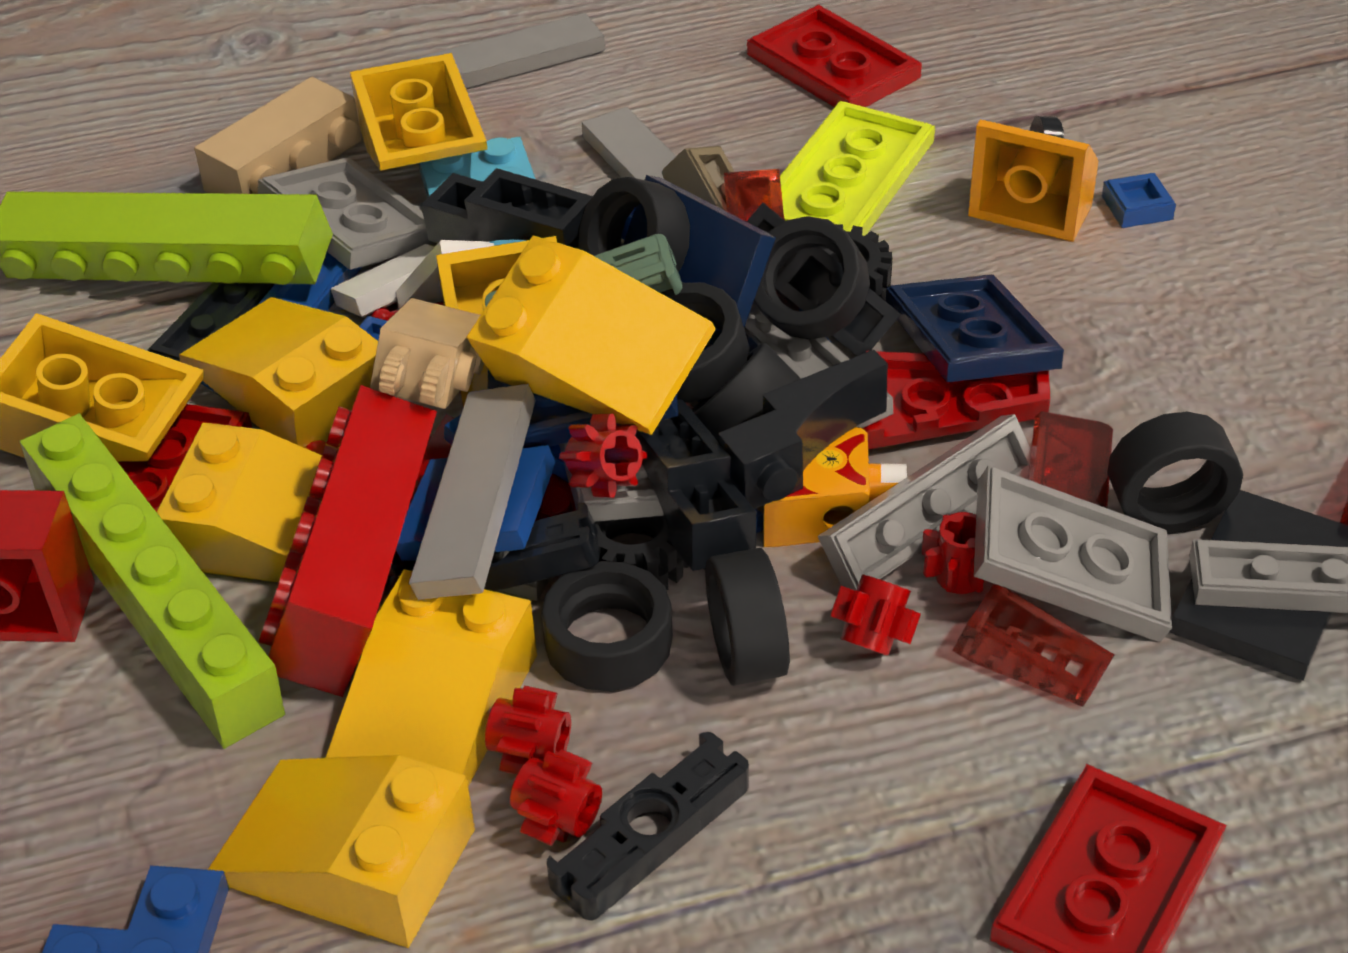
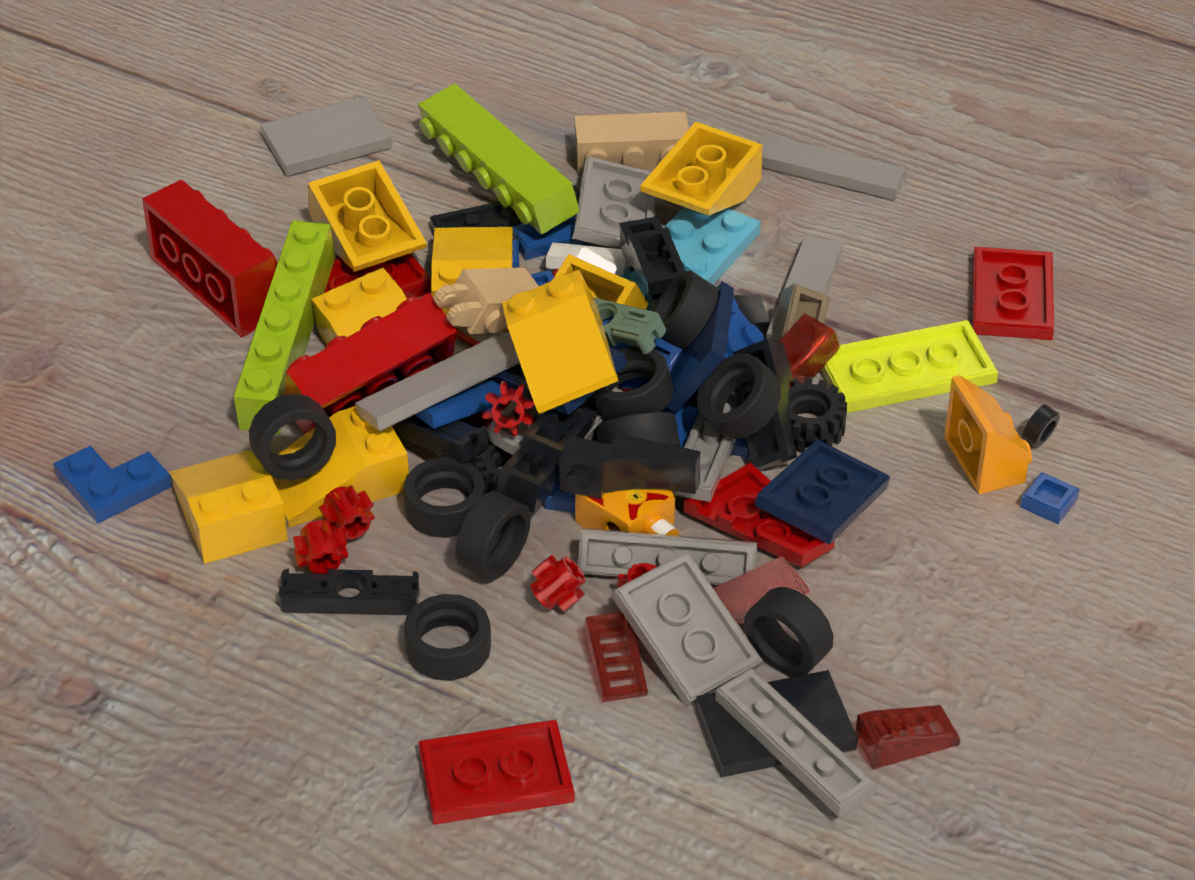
camera: 45 degrees right, 0 degrees up
(382, 682) = (278, 414): none -> black tyre
(845, 820) = (445, 662): none -> black tyre

